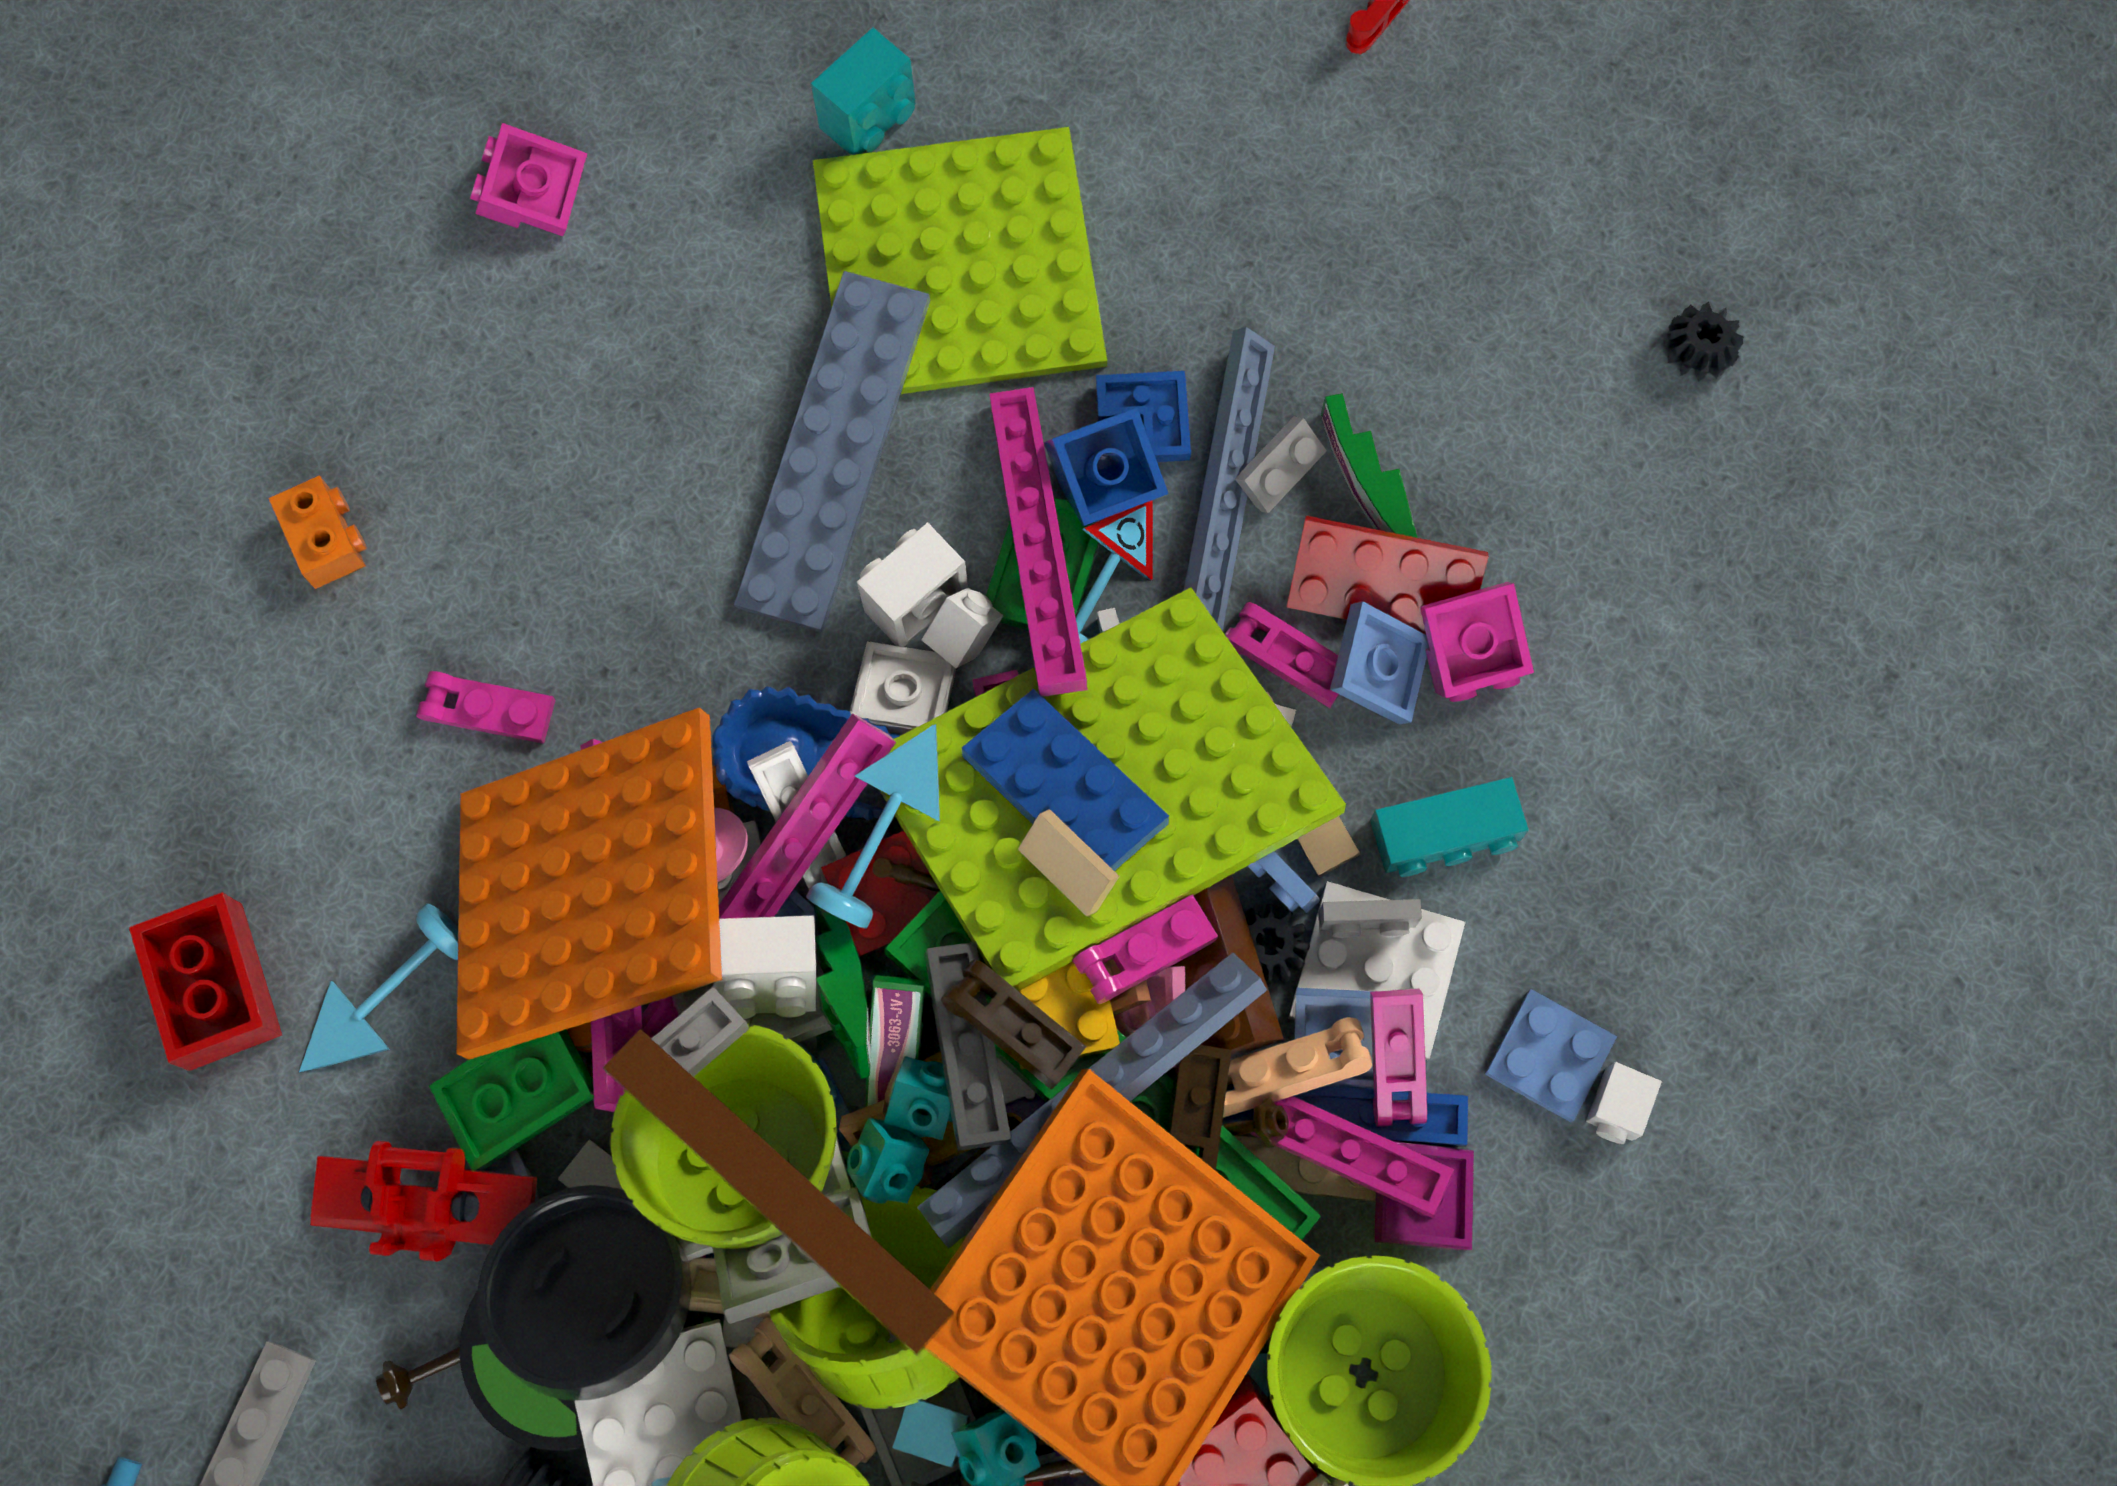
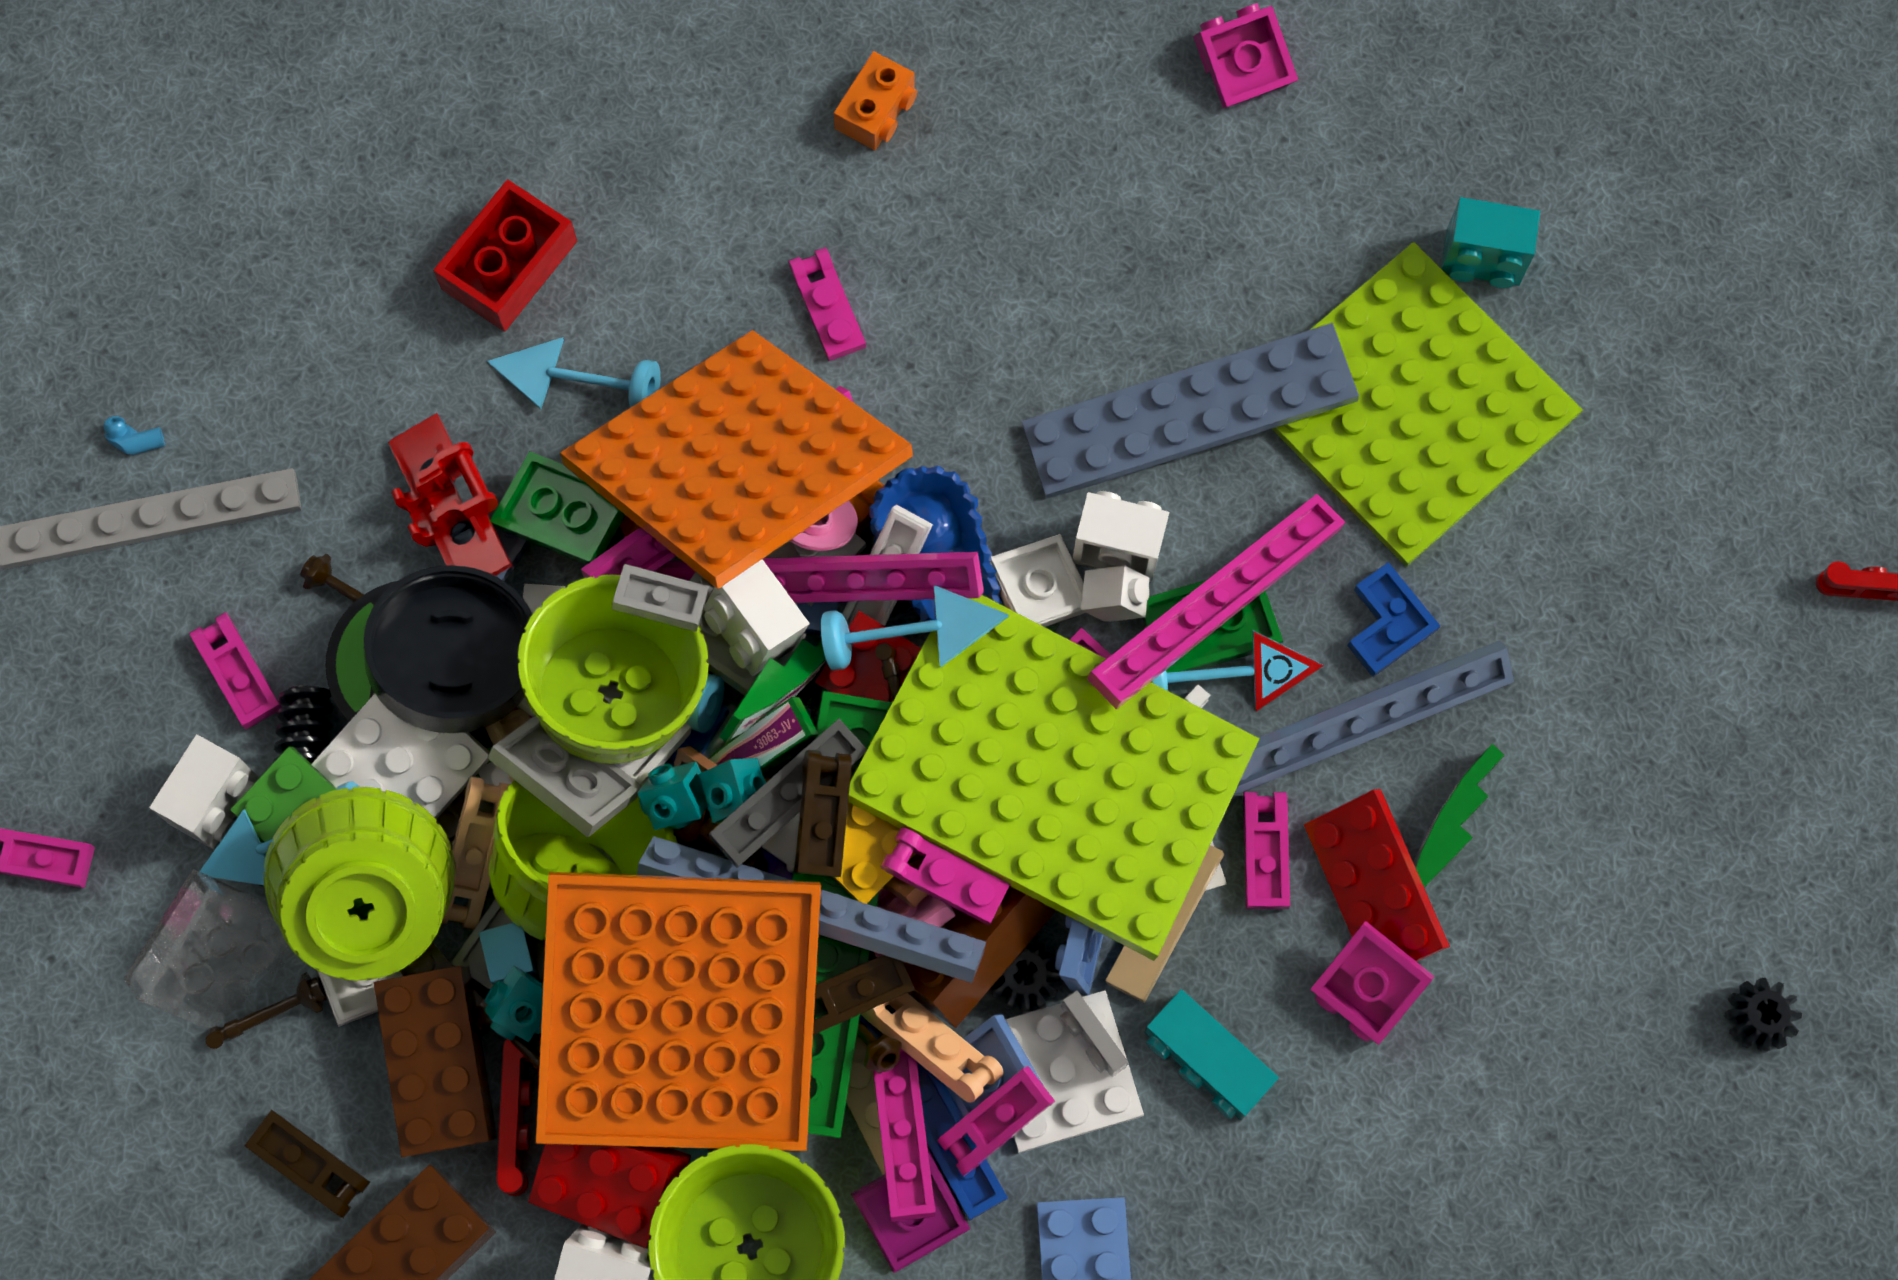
camera: 55 degrees right, 0 degrees up
(779, 1192) = (589, 724): reddish brown tile -> none
(1049, 765) = (1028, 739): blue plate -> none
(1068, 862) = (966, 775): tan tile -> none
(1106, 467) = (1314, 616): blue slope -> none
(1280, 464) = (1416, 747): light grey plate -> none
(1380, 663) = (1303, 921): medium blue plate -> none

